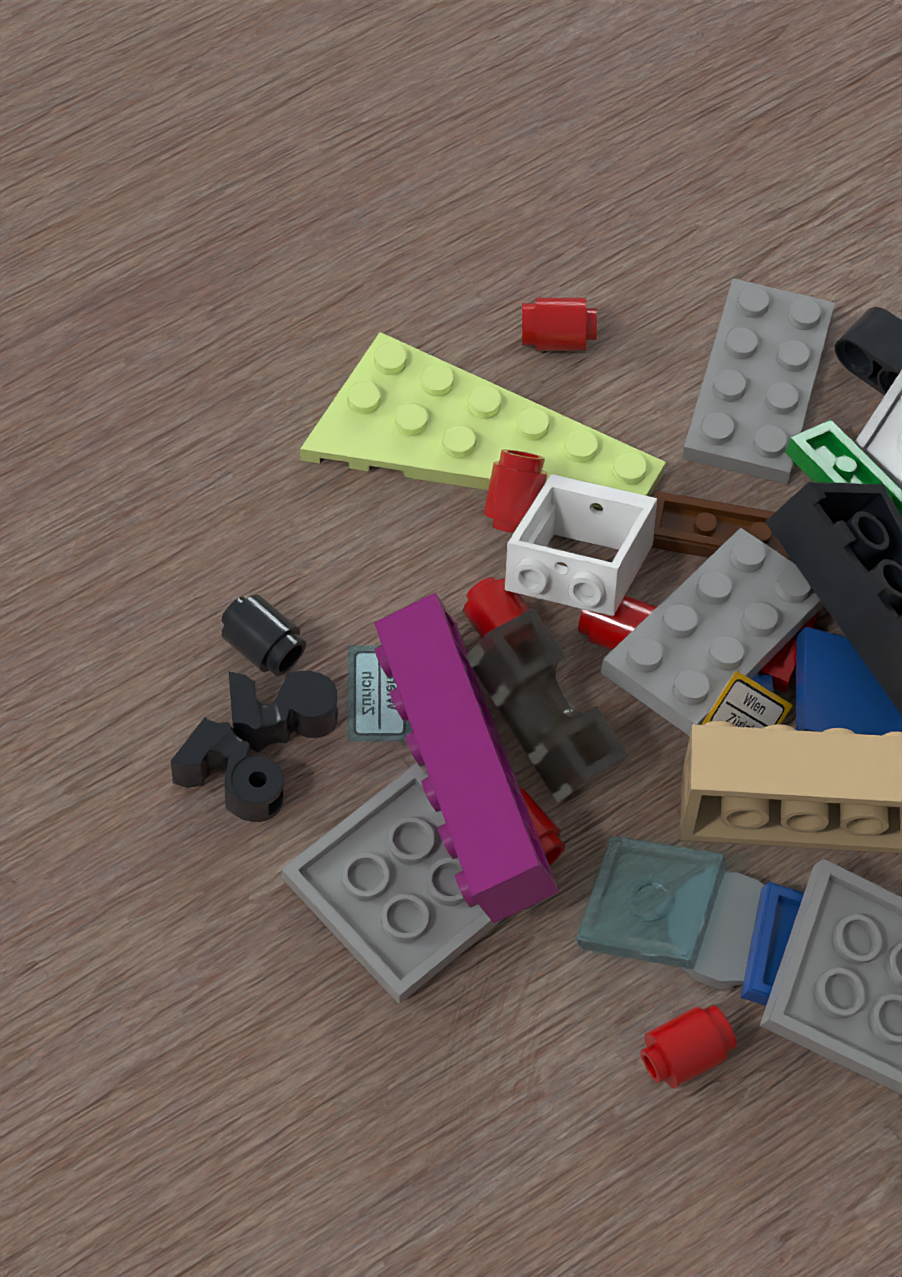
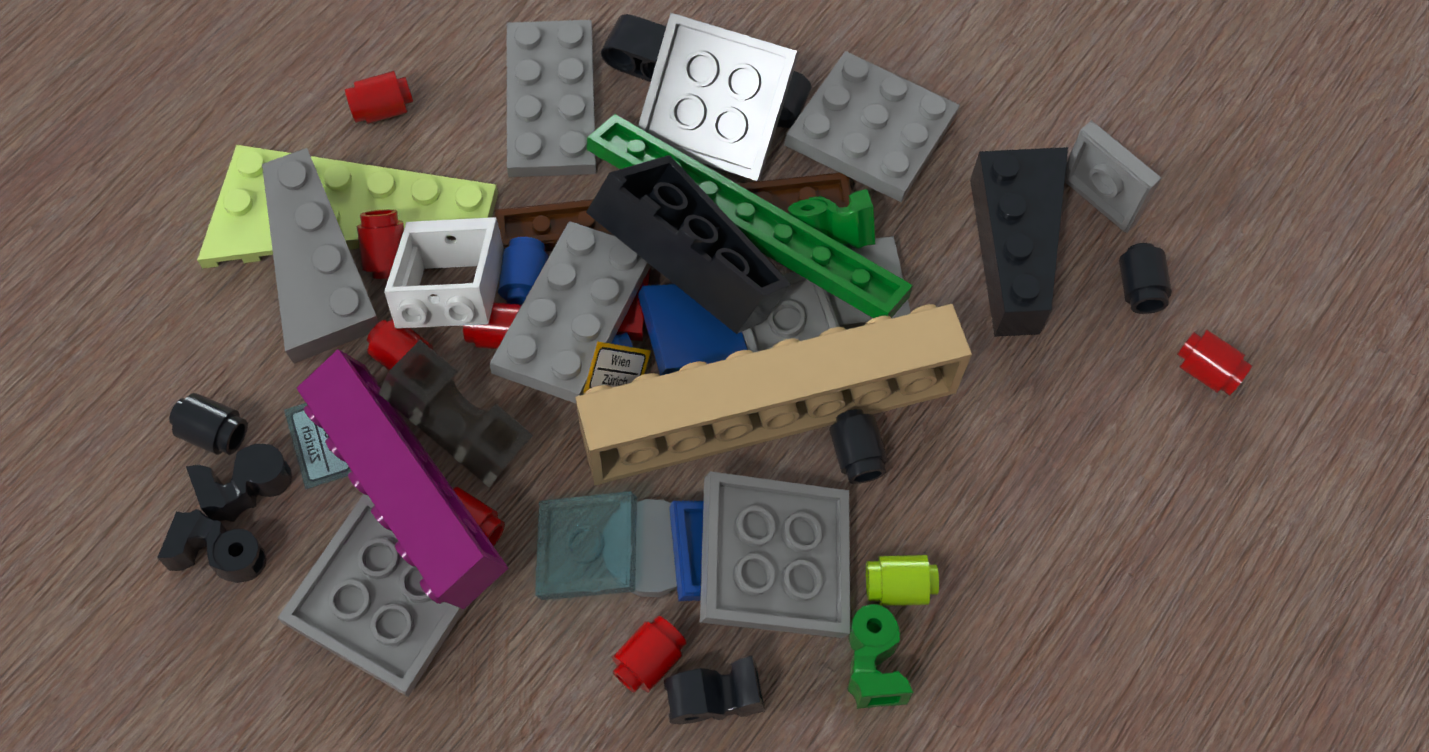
camera: 20 degrees left, 5 degrees up
(434, 499) = (314, 270): none -> light grey wedge
(667, 565) = (521, 268): none -> blue brick
(738, 1110) = (708, 694): none -> black leg

